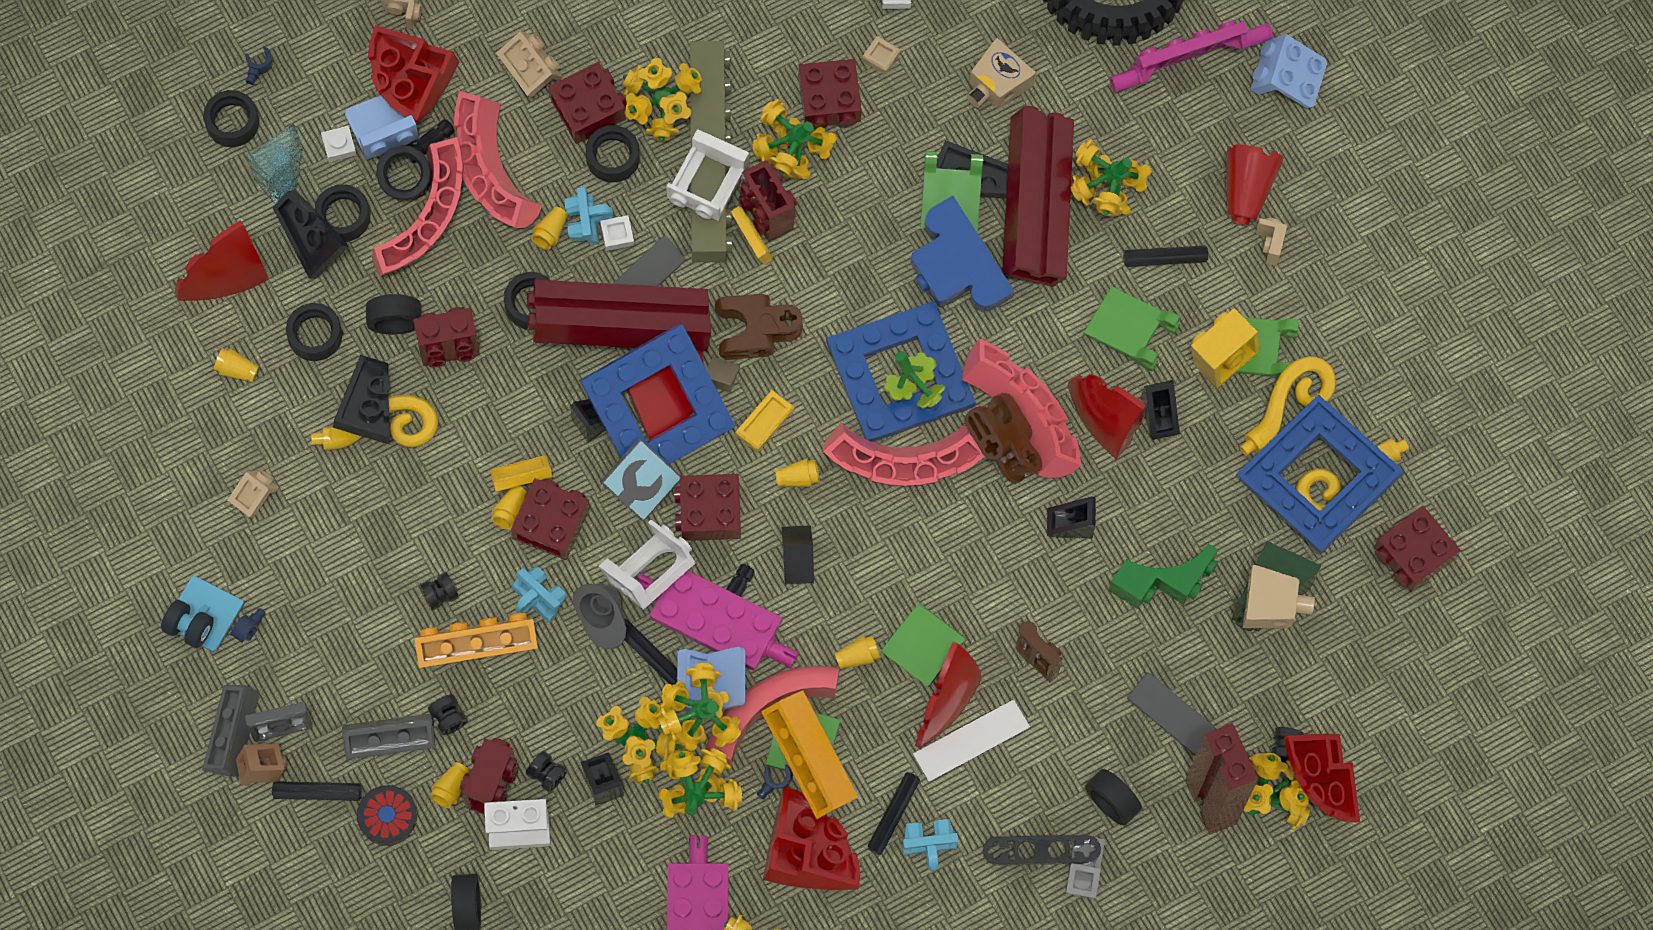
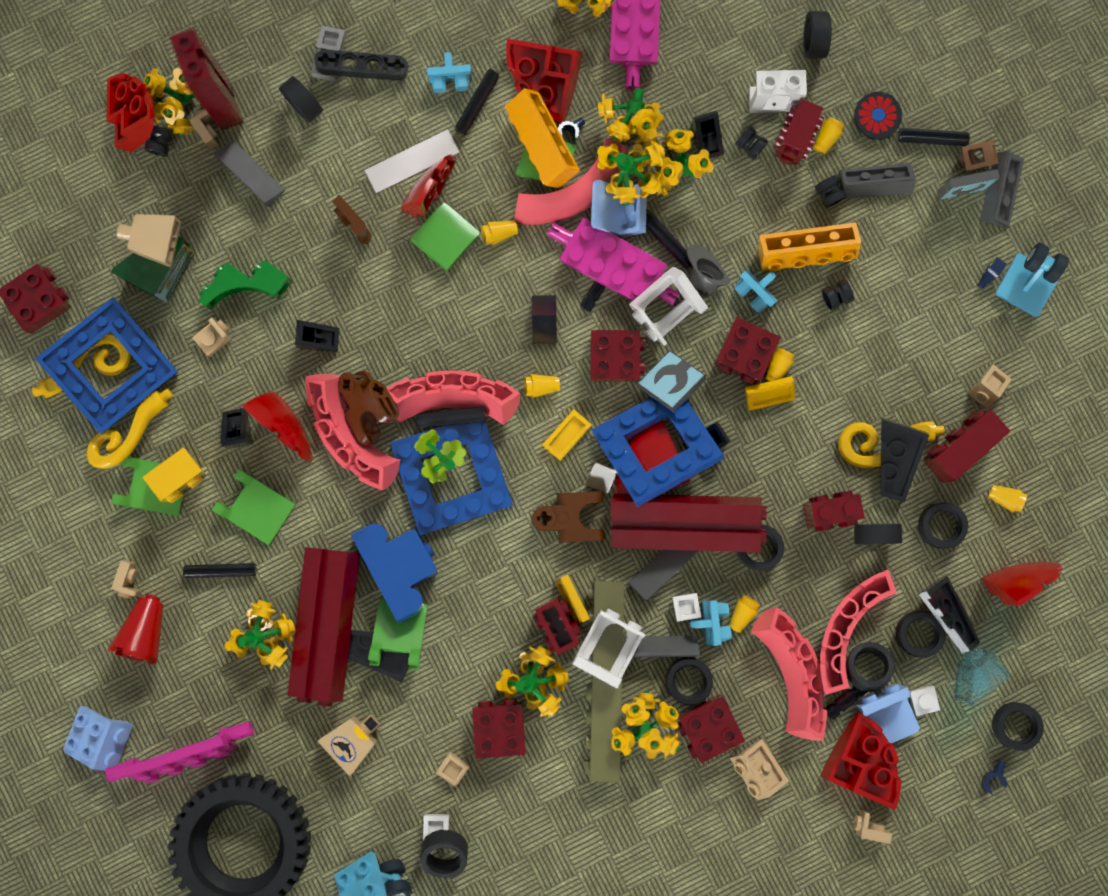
camera: 175 degrees left, 15 degrees up
(287, 415) = (966, 445): none -> dark red brick
(637, 189) = (667, 646): none -> dark grey slope
(904, 431) = (451, 417): none -> black axle
(1198, 518) = (212, 336): none -> tan bracket

